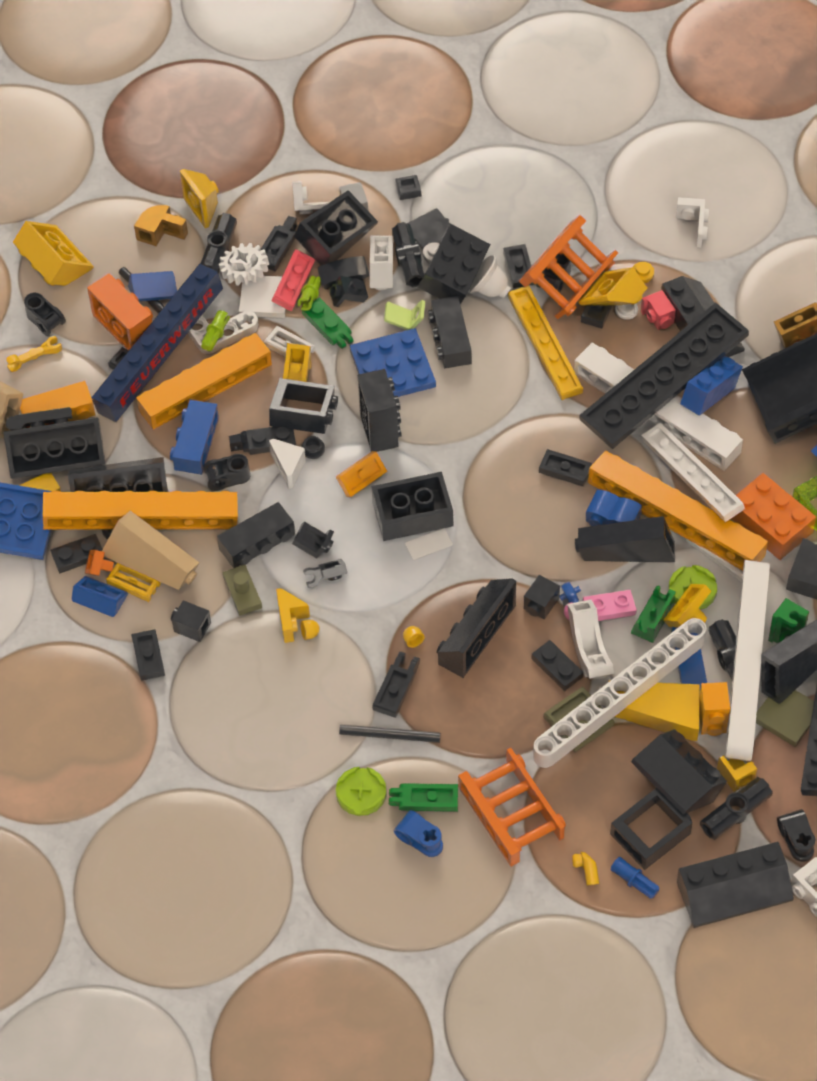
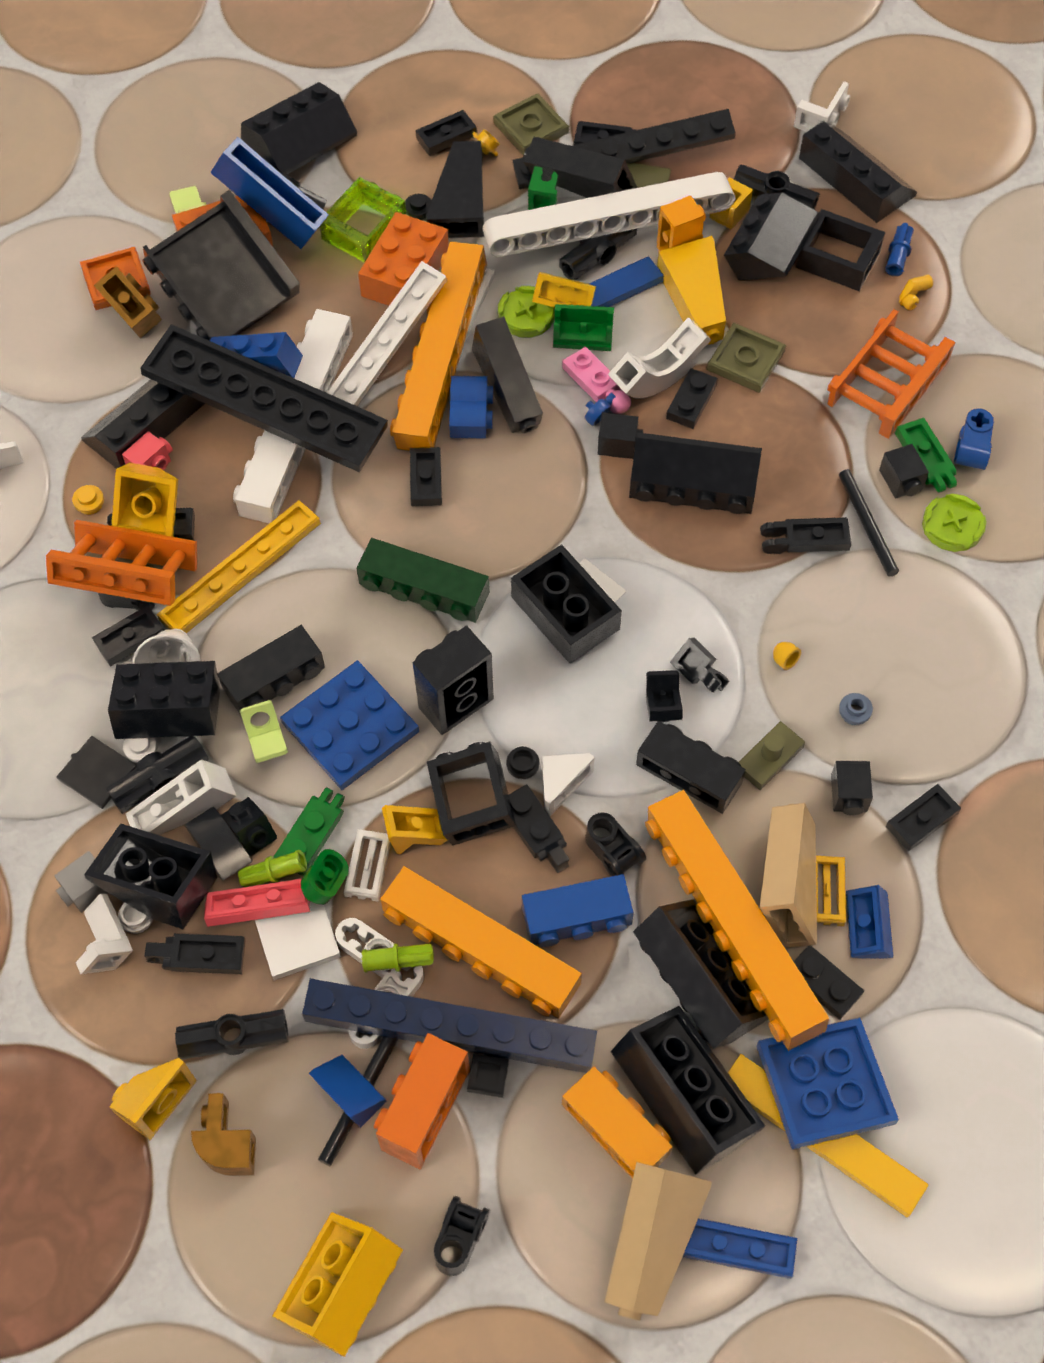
camera: 115 degrees left, 5 degrees up
(15, 362) = (557, 1234): yellow piece -> none
(39, 418) = (665, 1118): black hinge -> none
(96, 563) = (836, 938): orange tile -> none
(244, 264) = (252, 982): white gear -> none
(246, 659) = (853, 716): none -> sand blue plate
(287, 313) = (324, 877): none -> green plate
(290, 610) = (779, 684): yellow slope -> none
(361, 474) = (528, 681): light orange plate -> none
(408, 187) = (29, 828): black tile -> none
(413, 636) = (735, 544): yellow hinge -> none
(416, 768) = (903, 471): none -> black brick
(477, 436) = (423, 580): none -> dark green brick
(617, 702) = (718, 302): white beam -> none
(797, 834) = (773, 136): black piece -> none

